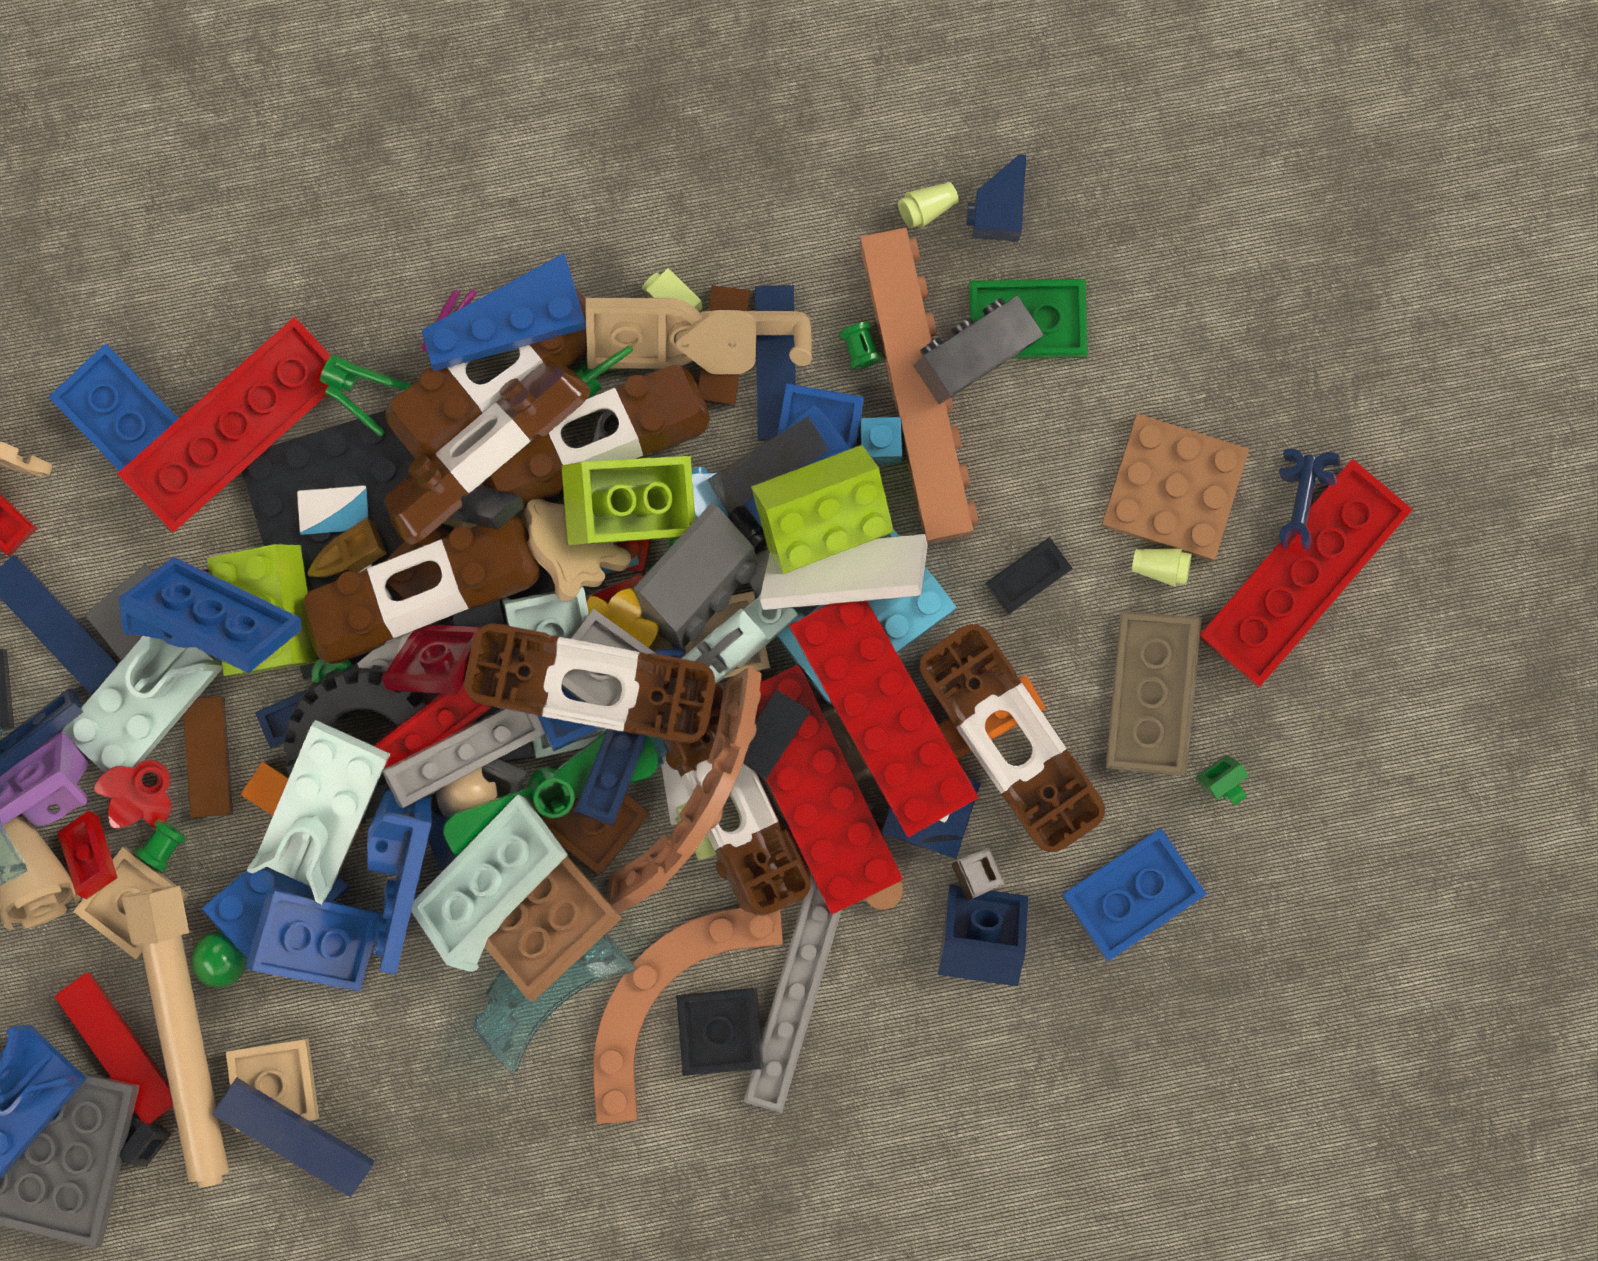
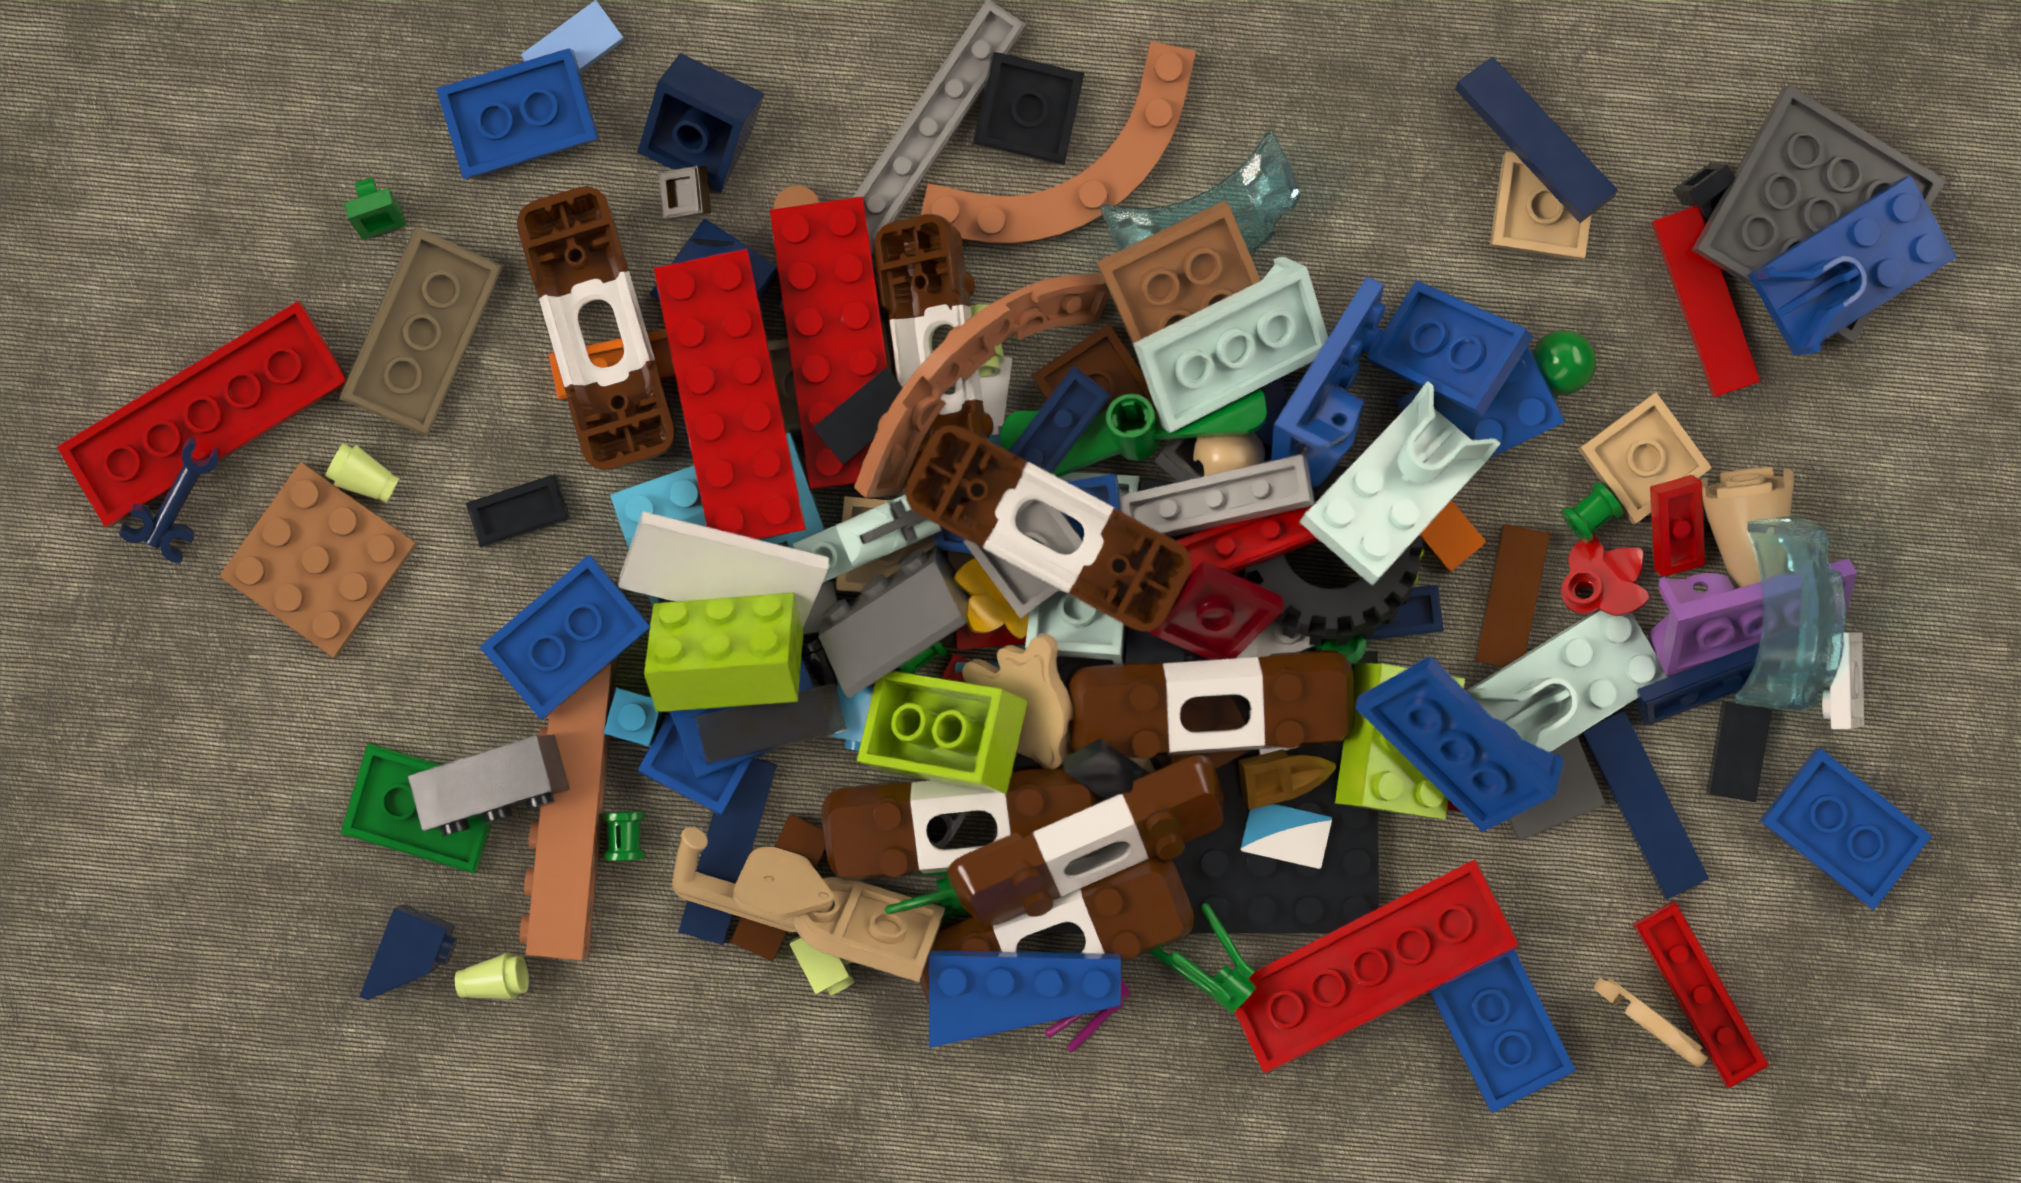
camera: 165 degrees left, 5 degrees up
(156, 923) = (1619, 419): tan brick -> none
(954, 482) = (565, 637): none -> blue plate
(1100, 979) = (587, 33): none -> light blue tile

